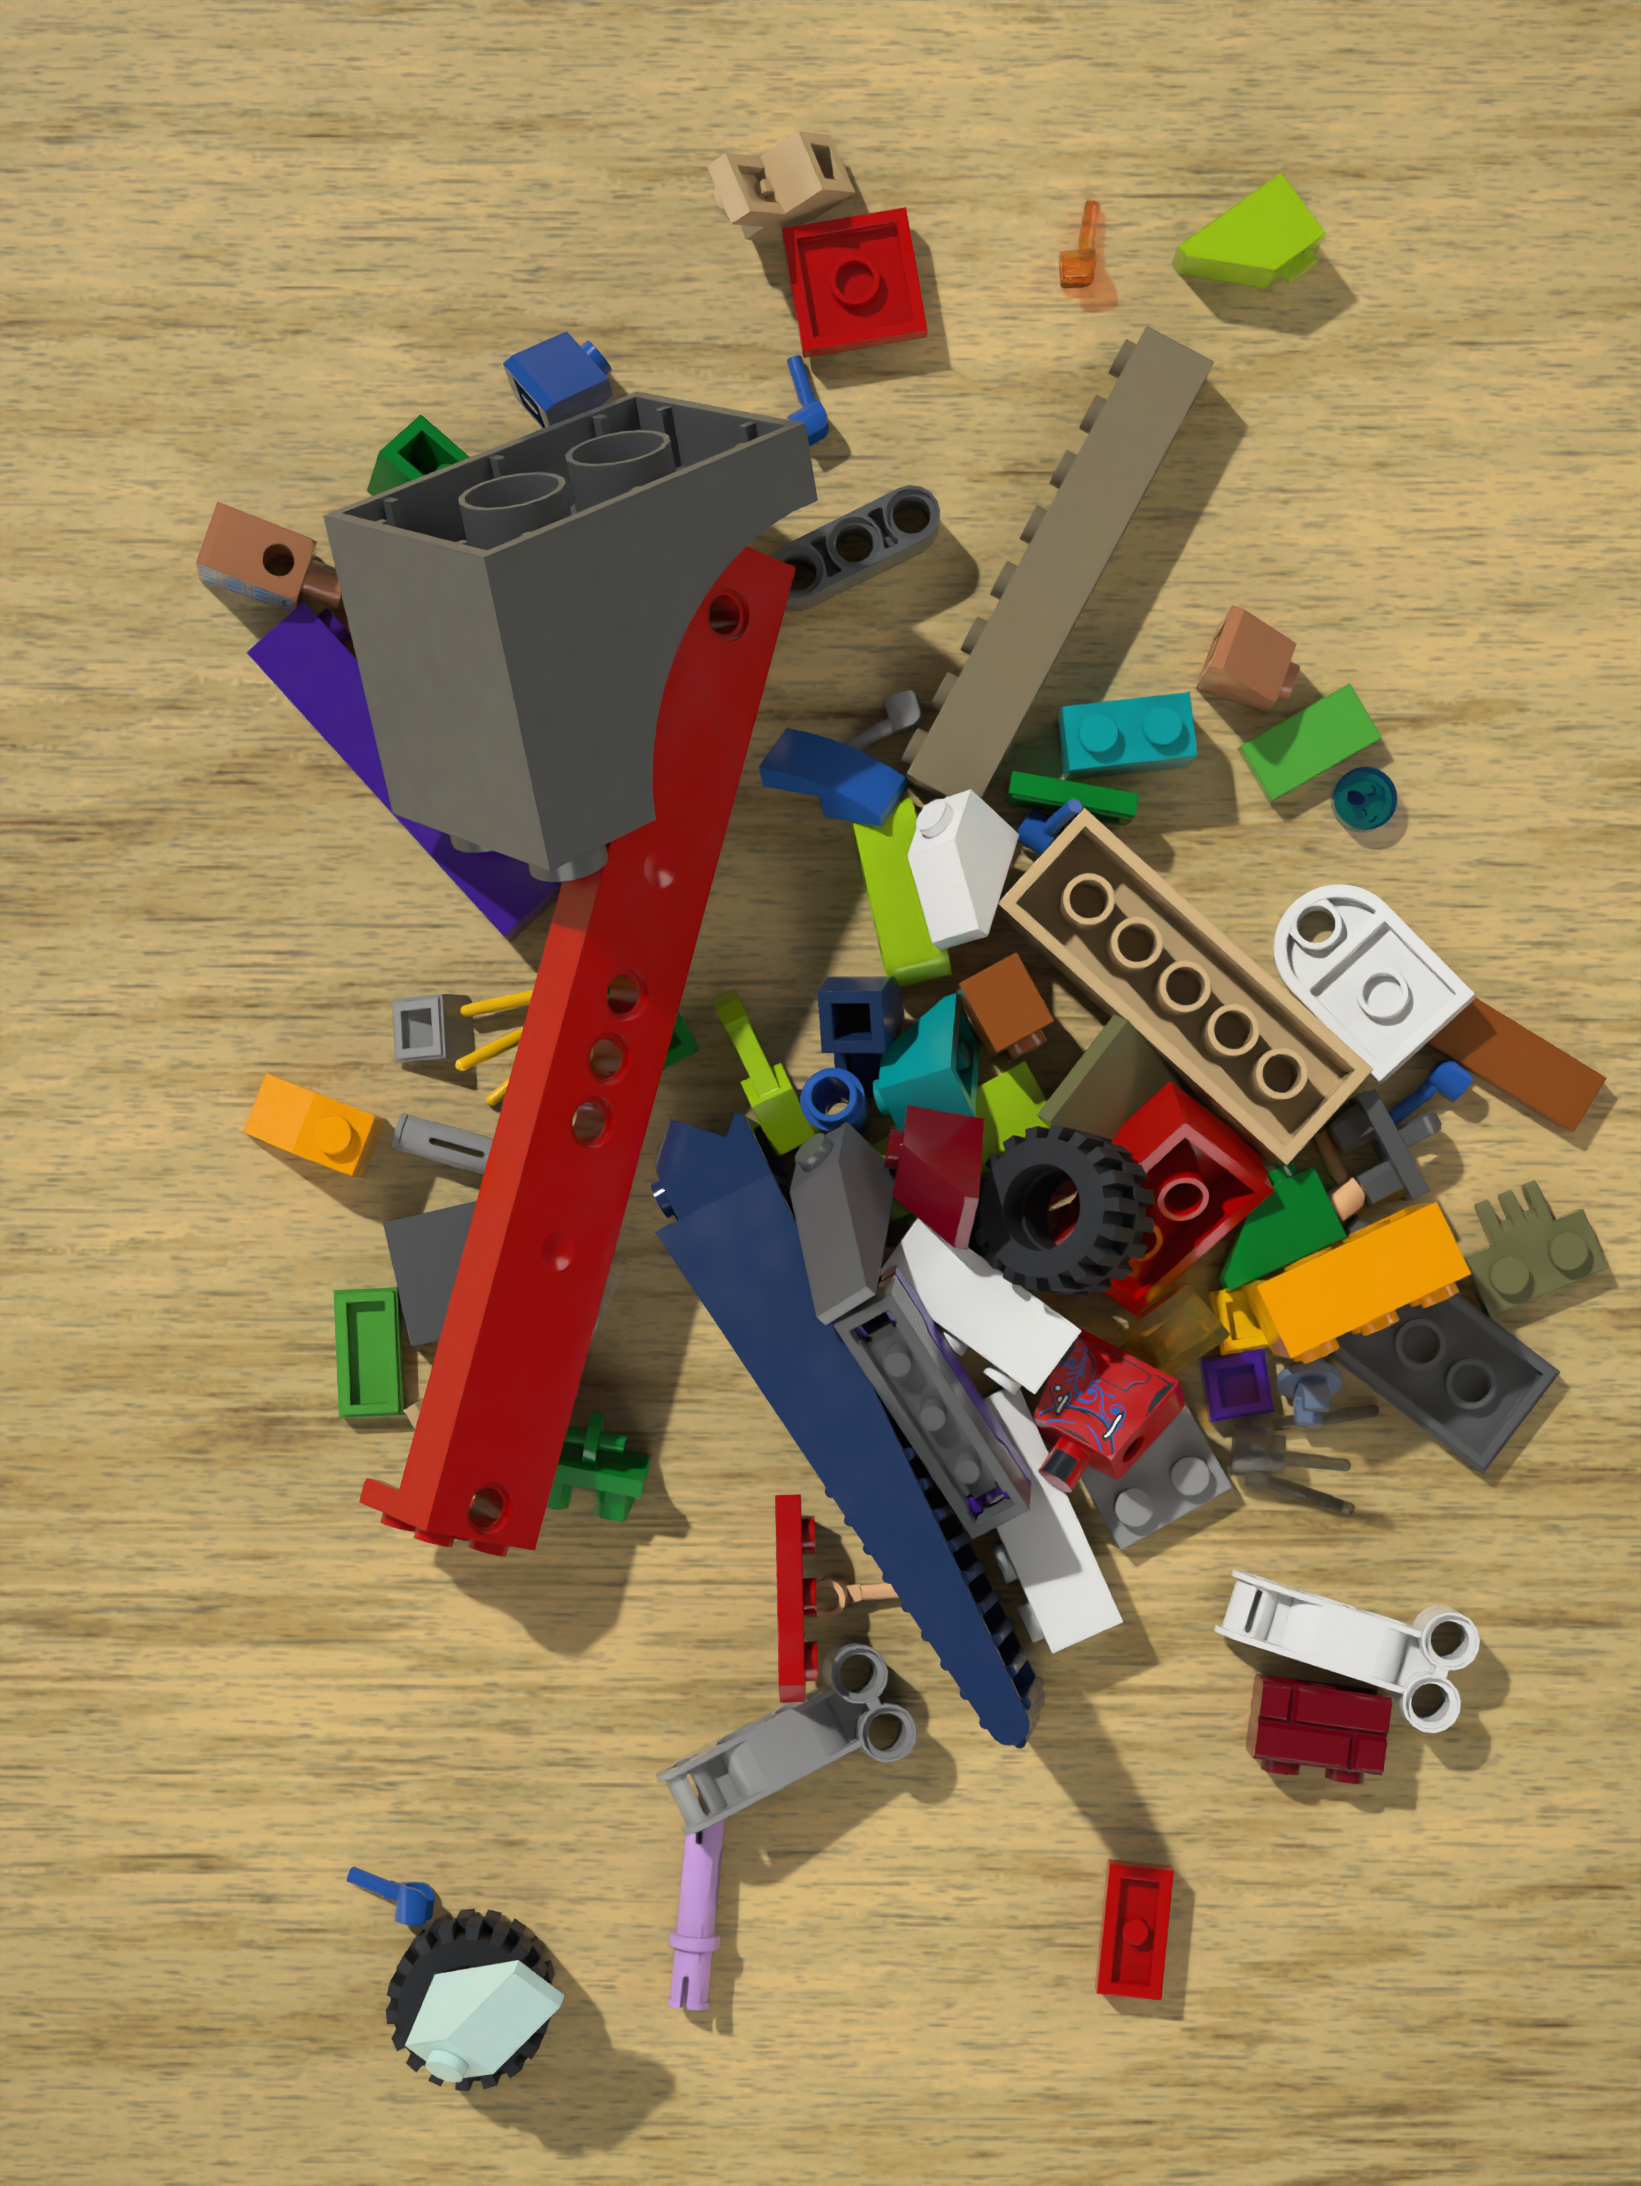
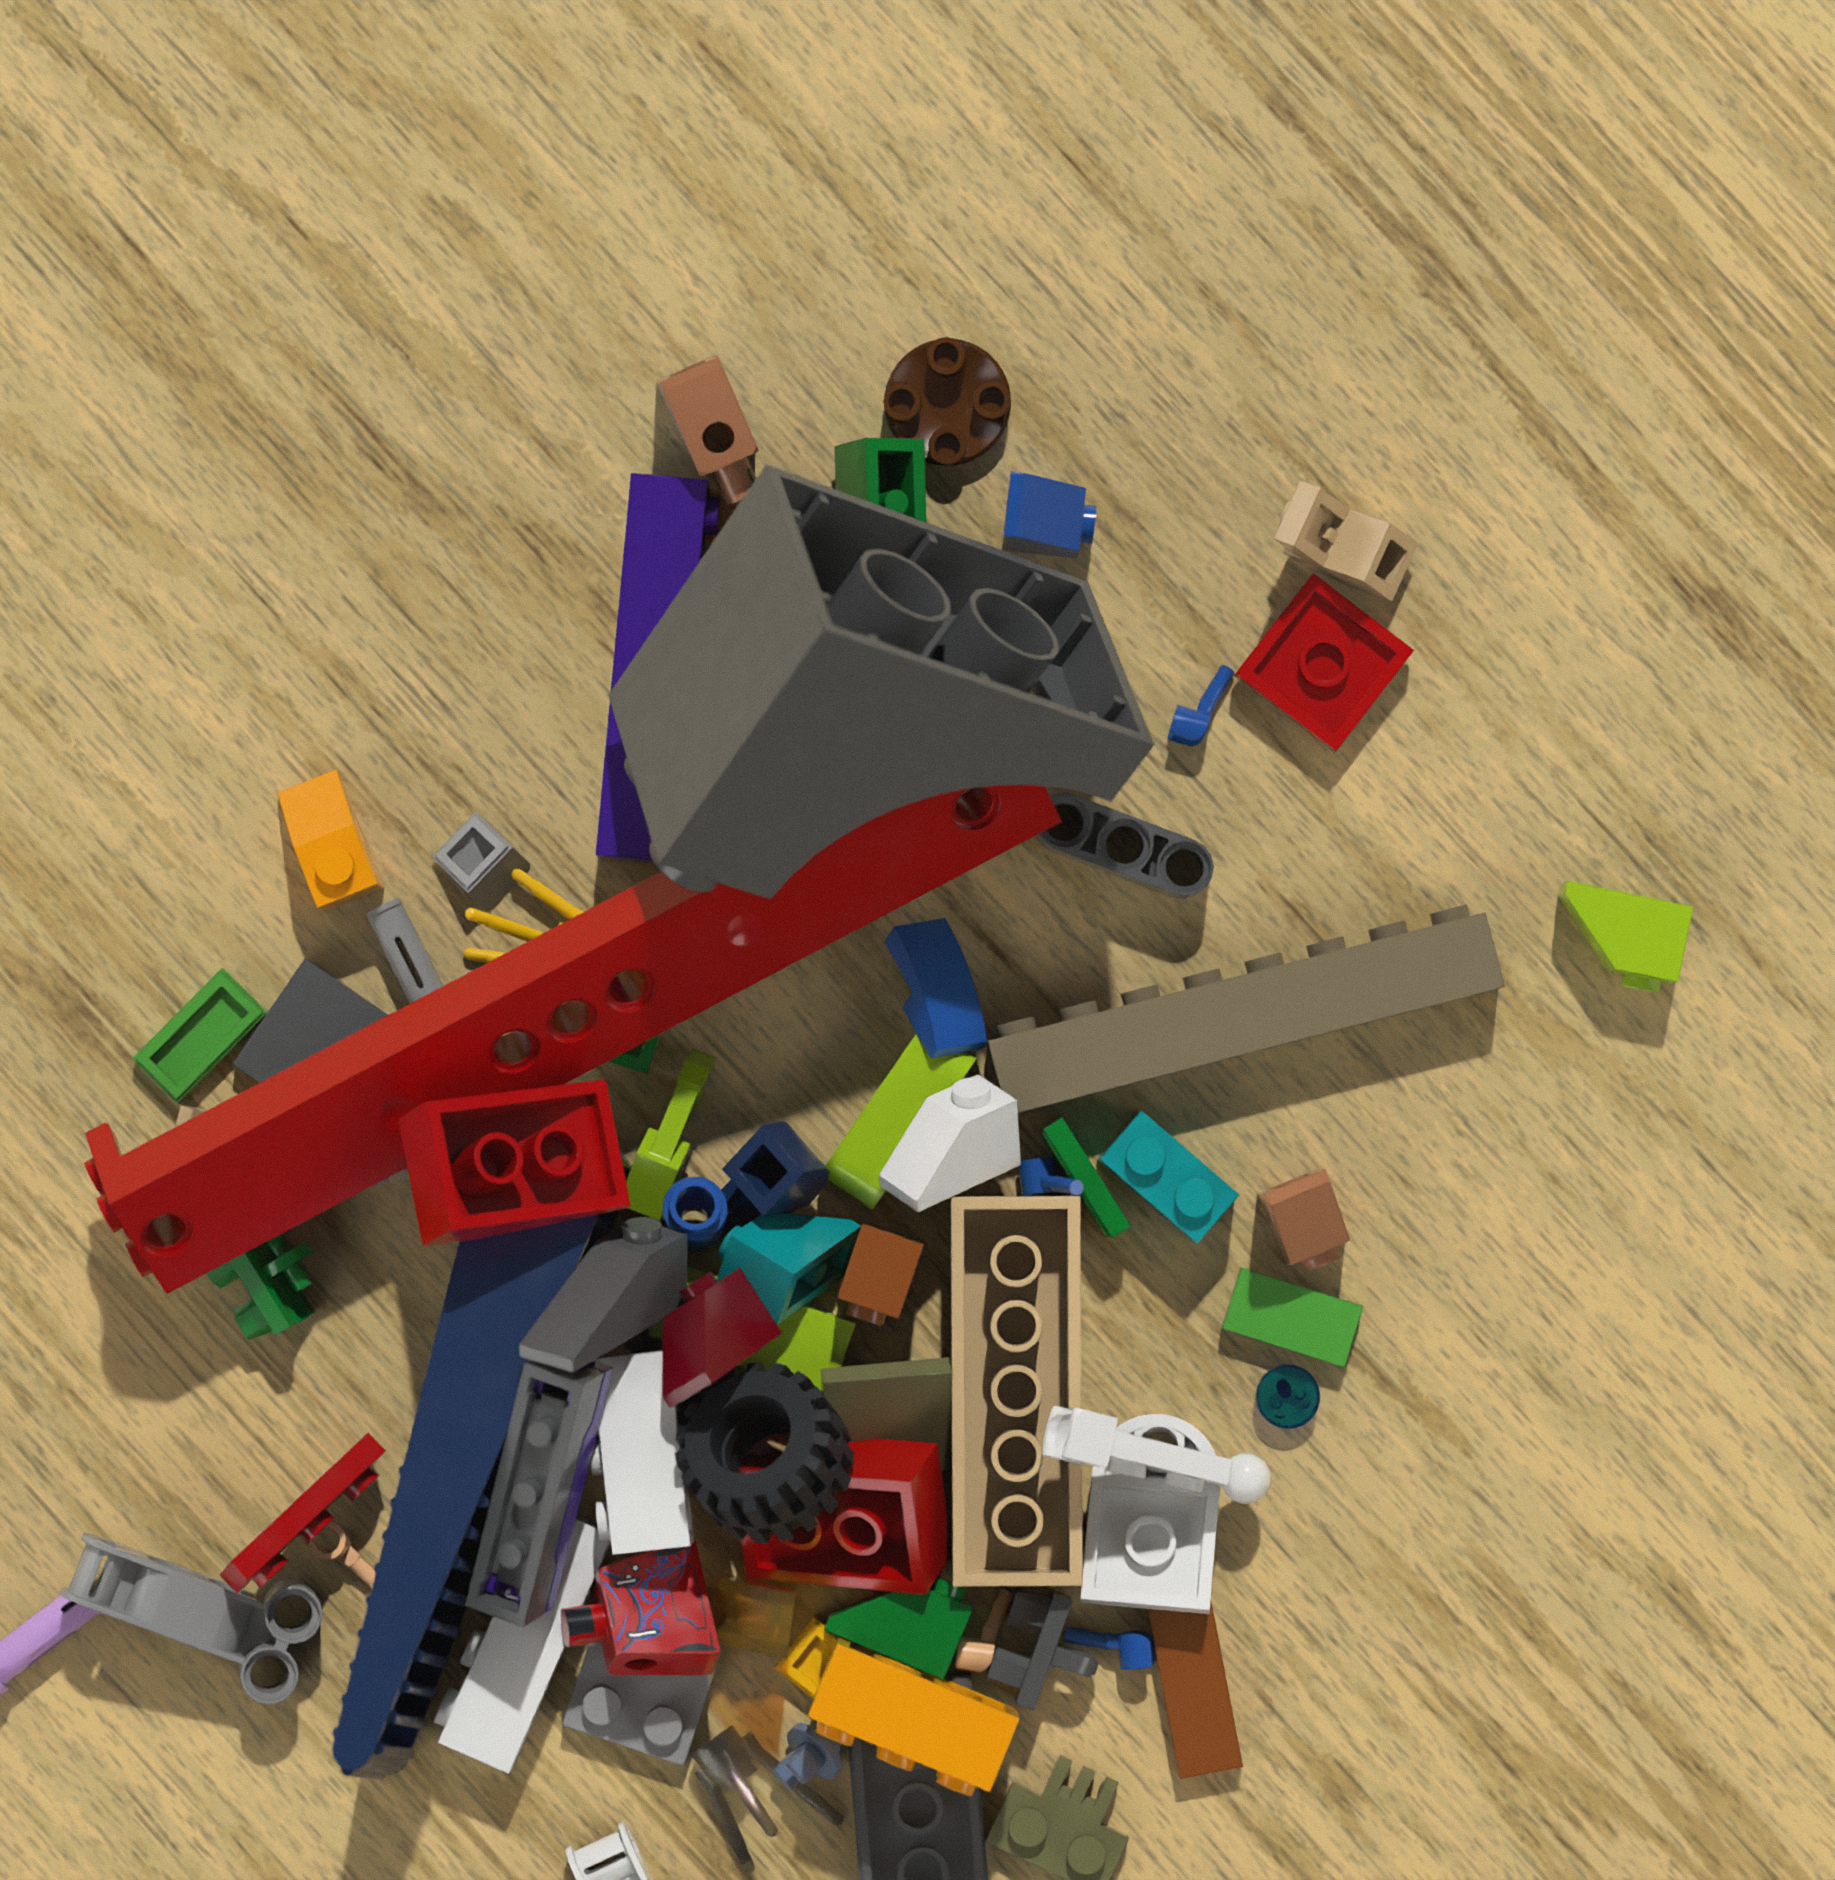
camera: 45 degrees right, 0 degrees up
(410, 371) = (949, 398): none -> reddish brown dish
(672, 1198) = (512, 1161): none -> red slope
(903, 716) = (1035, 995): light grey hand -> none
(1078, 266) = (1492, 817): clear orange hand -> none
(1236, 1385) = (762, 1699): dark purple tile -> none
(1279, 957) = (1093, 1441): none -> white plate

